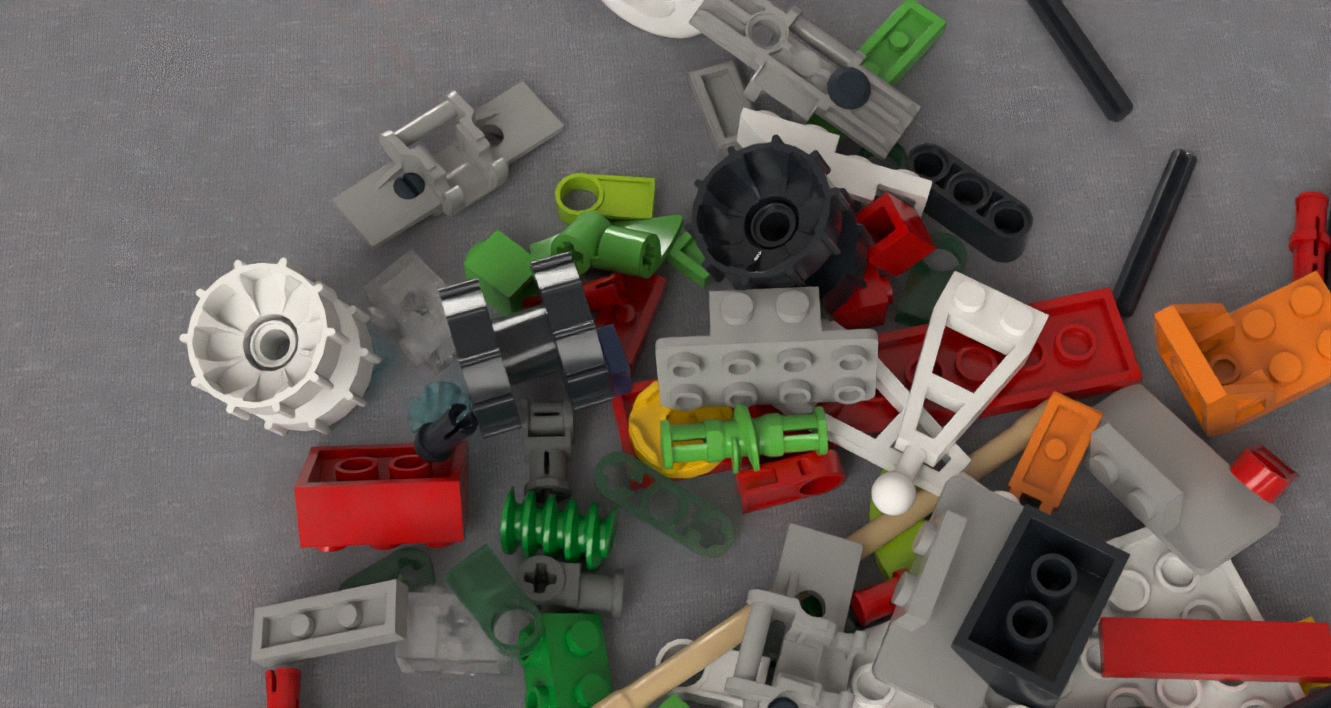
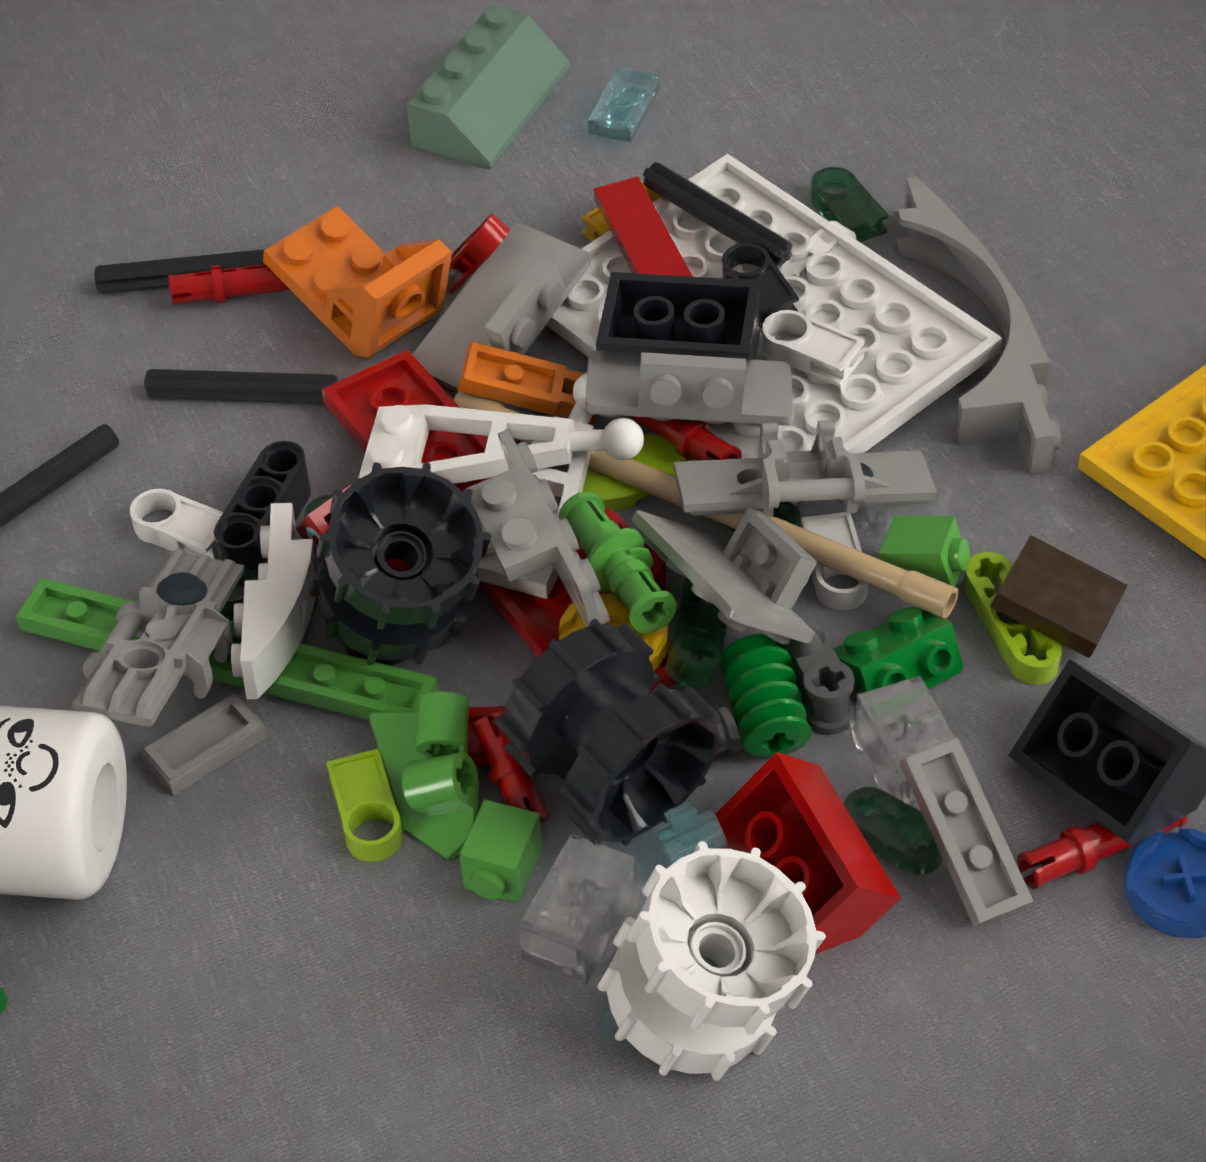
camera: 110 degrees left, 15 degrees down
(437, 439) = (734, 802): black pin -> none
(453, 178) = (404, 955): light grey piece -> none
(490, 592) = (870, 700): clear green piece -> none
(691, 535) = (748, 580): none -> light grey bracket
(981, 149) = (187, 529): none -> white piece

